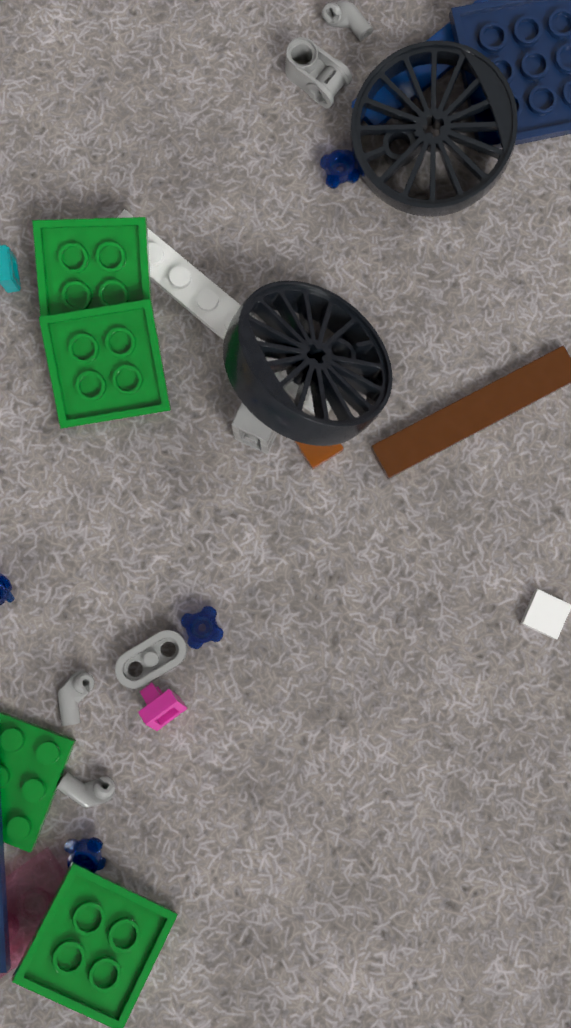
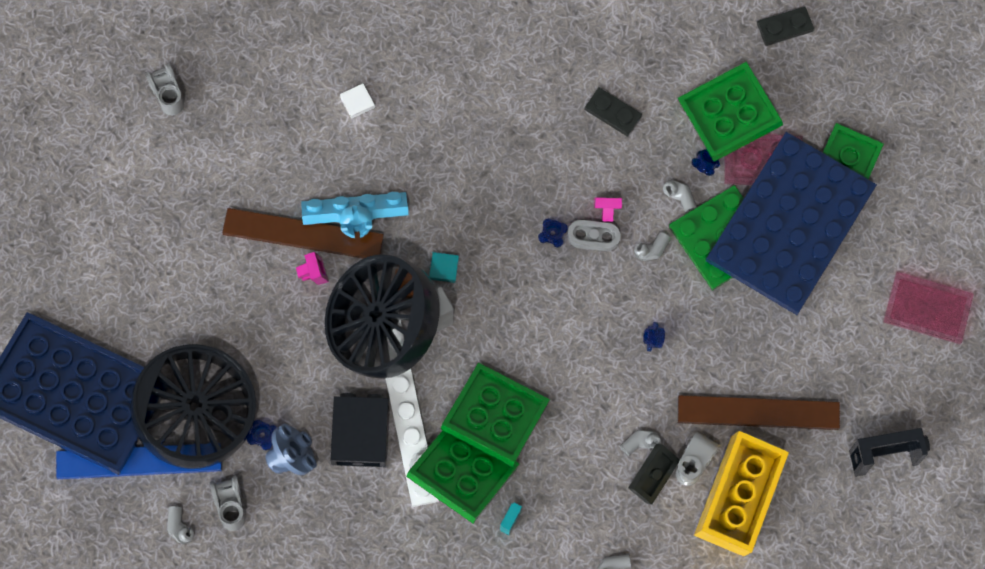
camera: 145 degrees left, 10 degrees down
(240, 240) = (359, 430): none -> black panel
(242, 835) = (613, 111): none -> pearl dark grey plate
(291, 163) = (290, 451): none -> sand blue plate
(293, 492) = (444, 267): none -> teal tile
(430, 378) = (313, 269): none -> dark pink tile
(441, 477) = (354, 212): none -> medium azure plate

